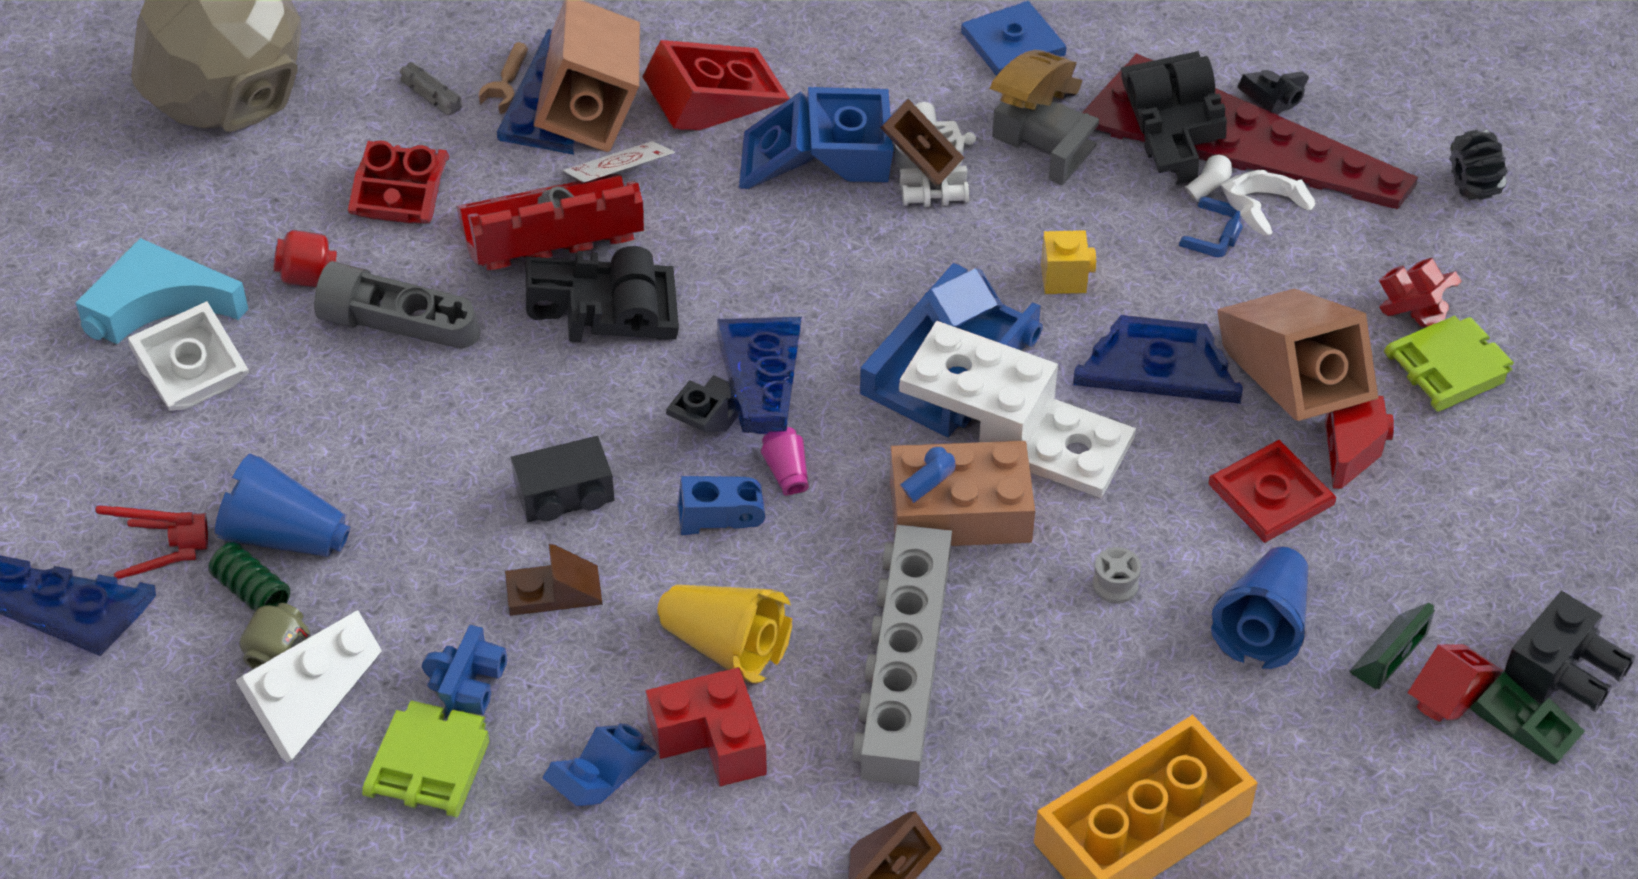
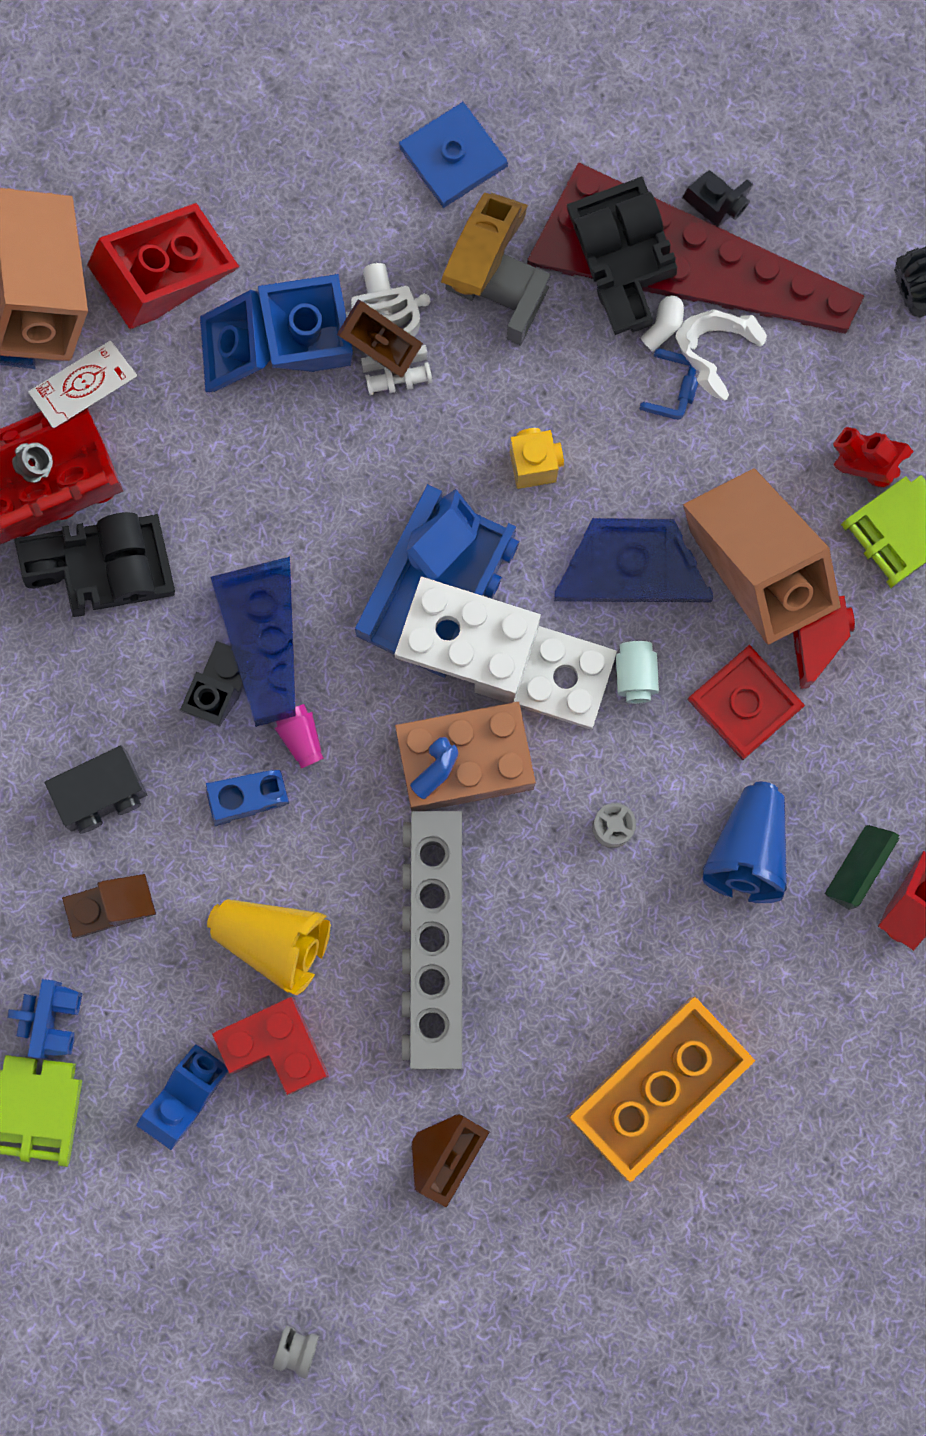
camera: 10 degrees left, 30 degrees up
(1155, 445) = (637, 671): none -> light aqua brick

